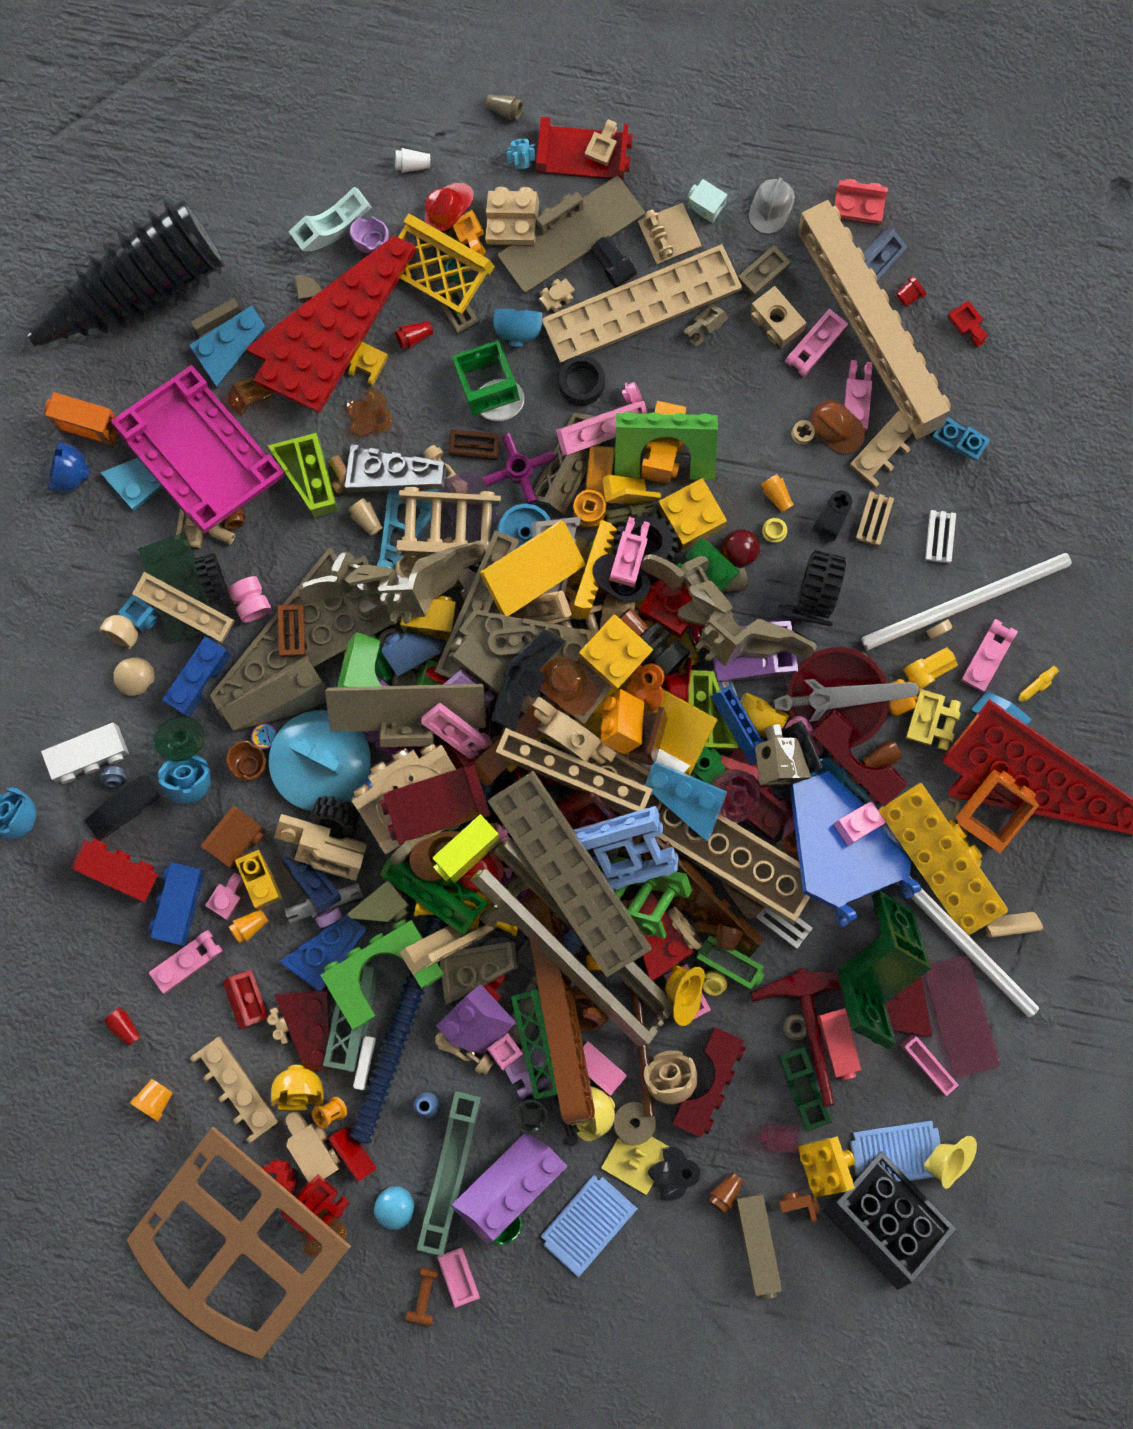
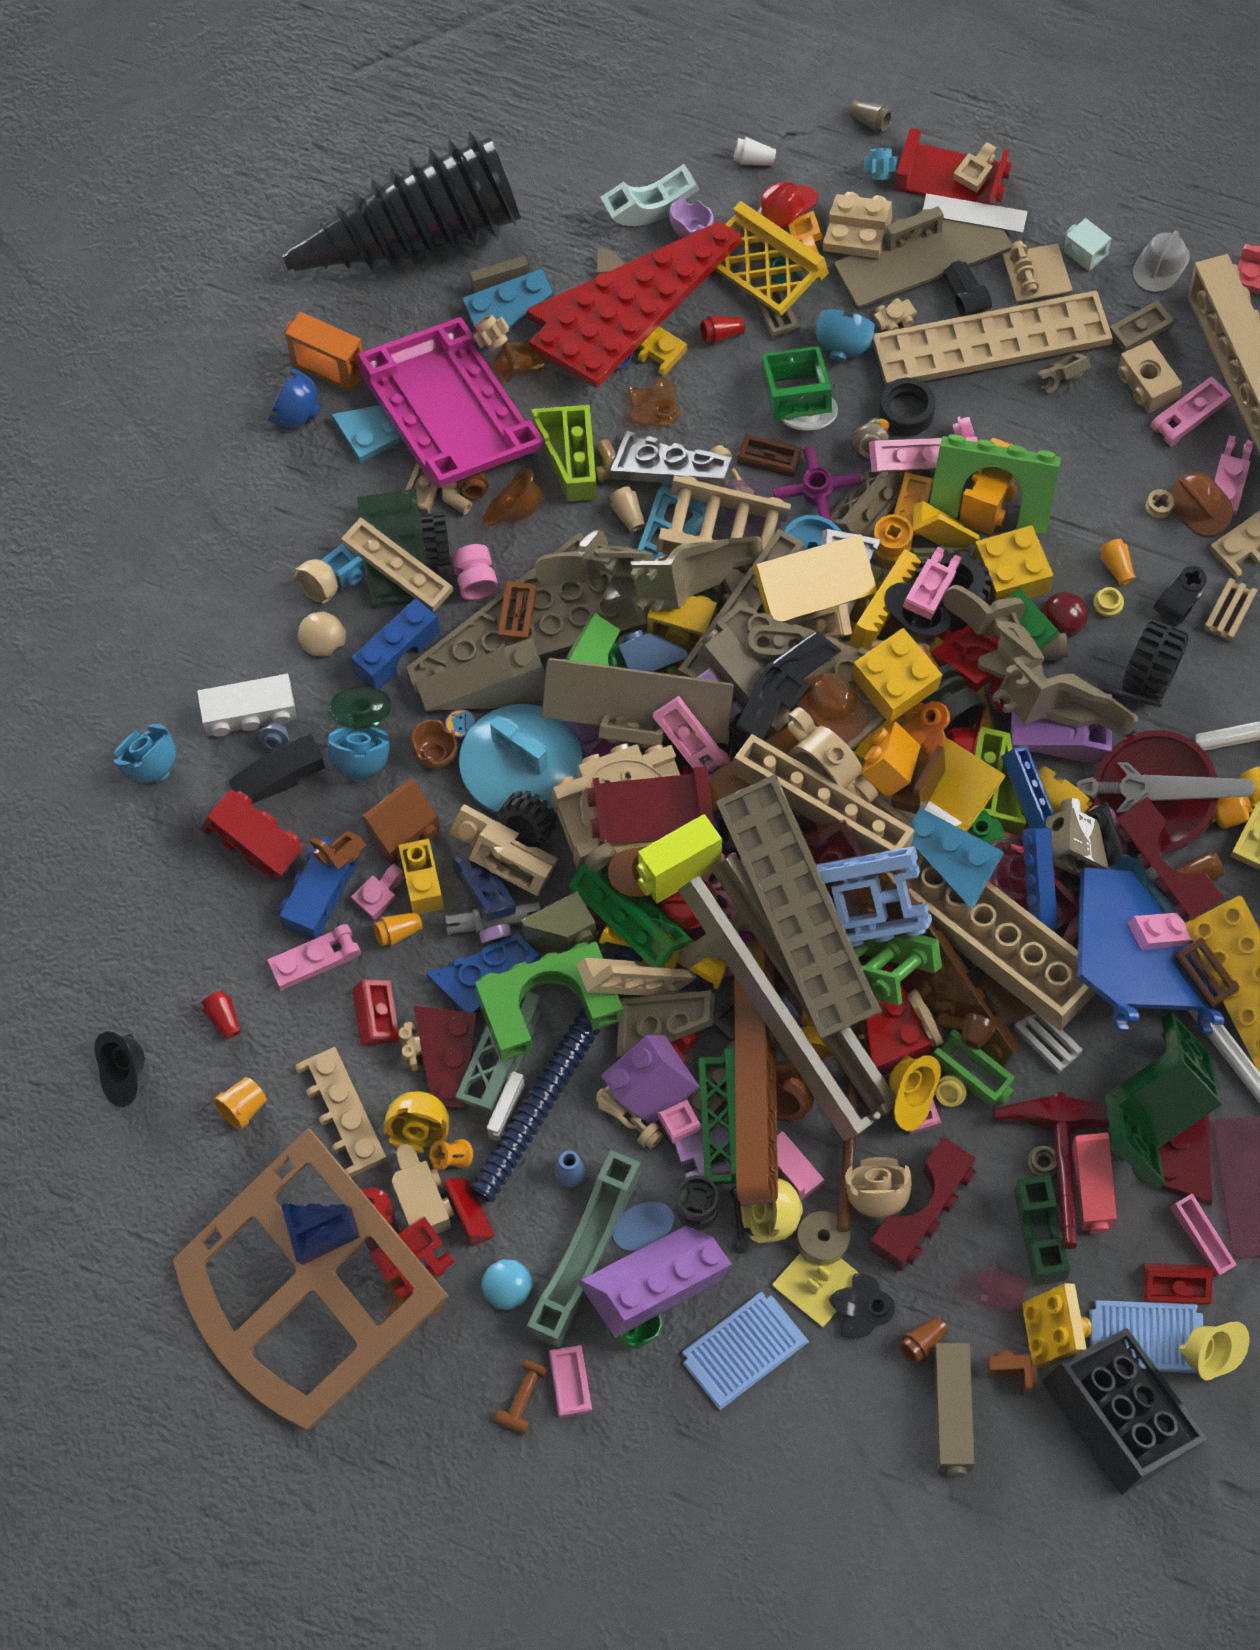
camera: 10 degrees right, 15 degrees down
(48, 1086) = (119, 1064): none -> black piece
(188, 877) = (340, 852): none -> dark orange bracket
(220, 376) = (491, 332): none -> tan gear
(236, 1209) = (318, 1229): none -> clear blue wing
(270, 526) = (516, 501): none -> clear orange piece
(492, 1138) = (643, 1225): none -> medium blue sticker
(556, 416) = (874, 430): none -> dark tan animal
(608, 186) = (978, 212): none -> white sticker
(758, 800) = (1040, 875): none -> blue piece
(886, 835) = (1197, 981): none -> reddish brown tile
(914, 1106) = (1177, 1283): none -> red slope

